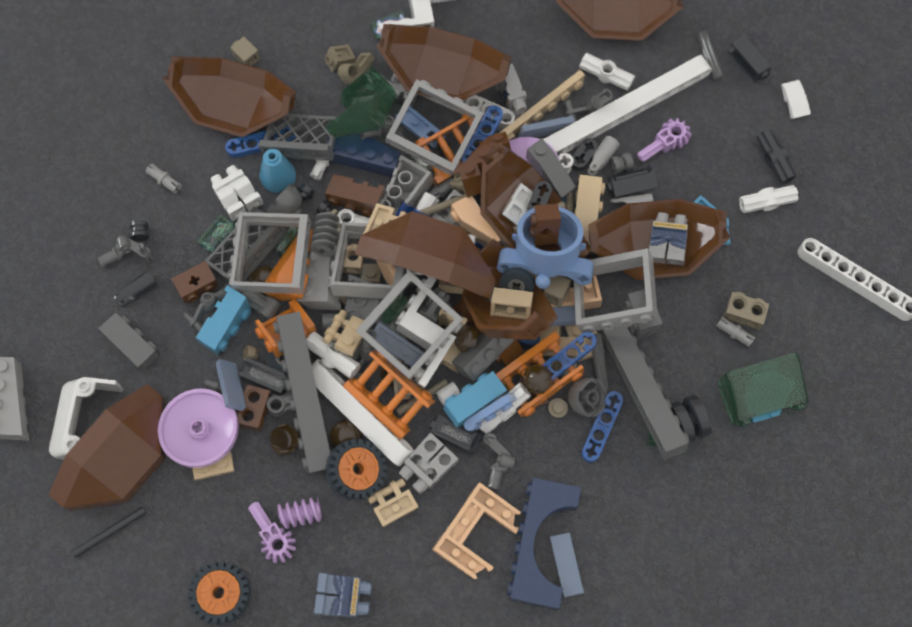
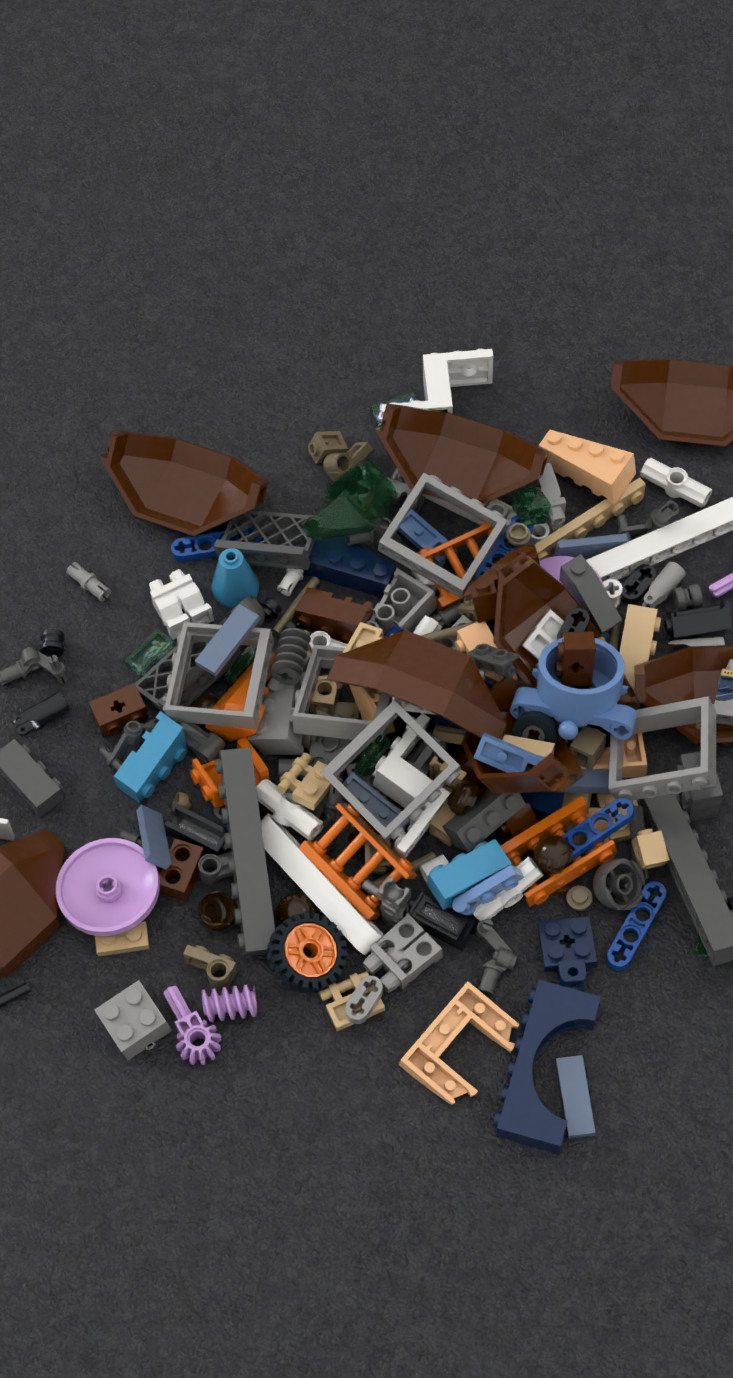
camera: 10 degrees right, 10 degrees down
(203, 590) = (120, 1115): wheel -> none
(226, 532) = (133, 1020): none -> light grey brick
(245, 52) = (206, 432): dark tan brick -> none
(274, 225) = (227, 640): none -> sand blue tile
(274, 476) = (203, 959): none -> dark tan plate
(320, 196) = (290, 613): none -> dark tan bar
(348, 599) = (275, 1111): hips -> none
(406, 505) = (368, 1002): none -> light grey beam
(417, 424) = (393, 898): none -> flat silver piece
(481, 227) = (493, 659): none -> dark grey hinge
(492, 123) = (518, 534): none -> dark tan plate
(500, 99) = (531, 506): none -> clear green brick
(501, 308) = (504, 755): none -> medium blue plate
(541, 61) = (590, 464): none -> light nougat wedge
(553, 459) = (572, 961): none -> dark blue plate
(609, 368) = (650, 849): none -> tan brick

